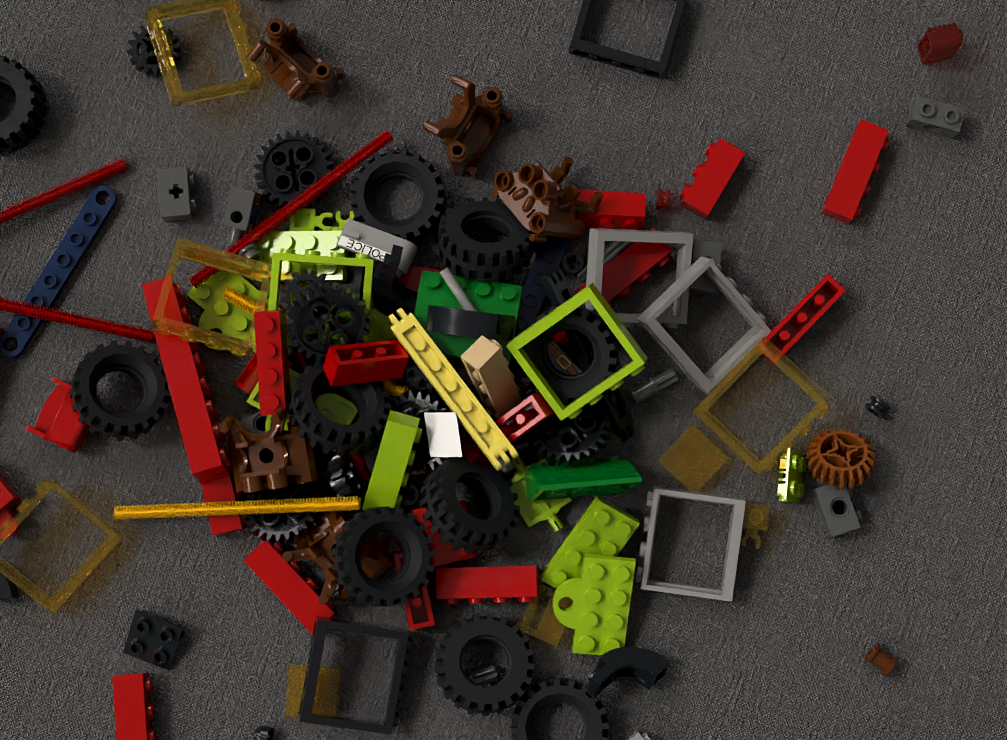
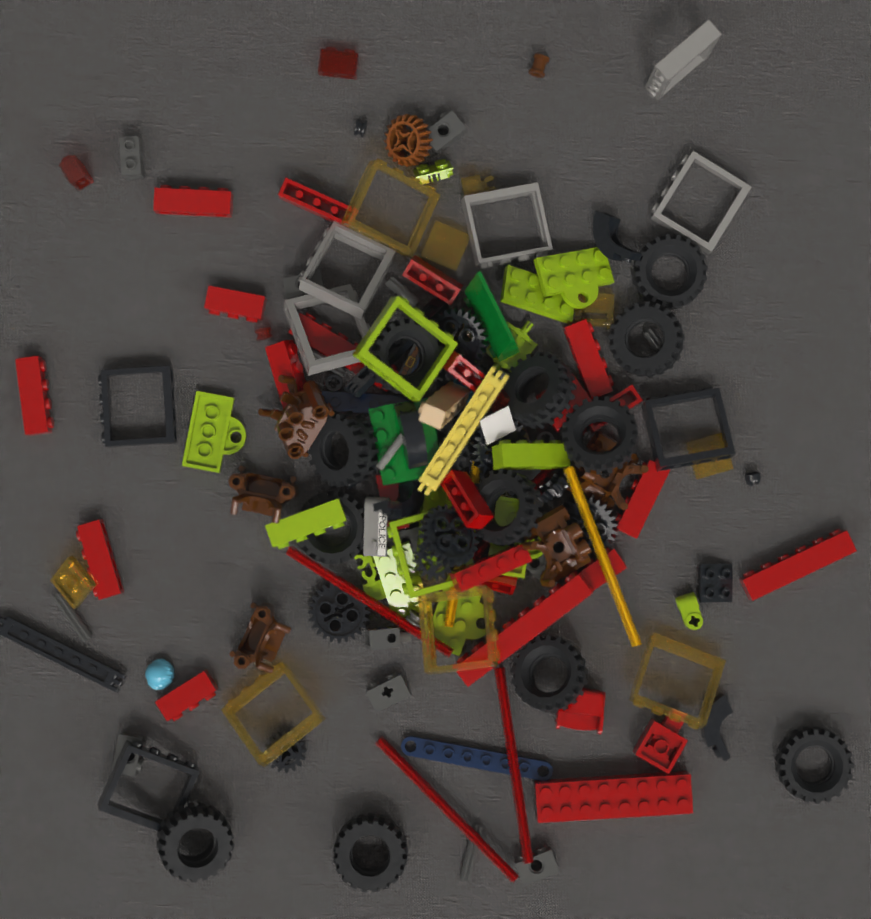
camera: 115 degrees left, 5 degrees up
(134, 594) = (688, 607): none -> lime piece
(412, 164) = (305, 523): none -> lime brick
(566, 96) = (211, 432): none -> lime plate
(655, 426) = (432, 280): none -> red brick
(968, 409) = (338, 63): none -> clear red brick

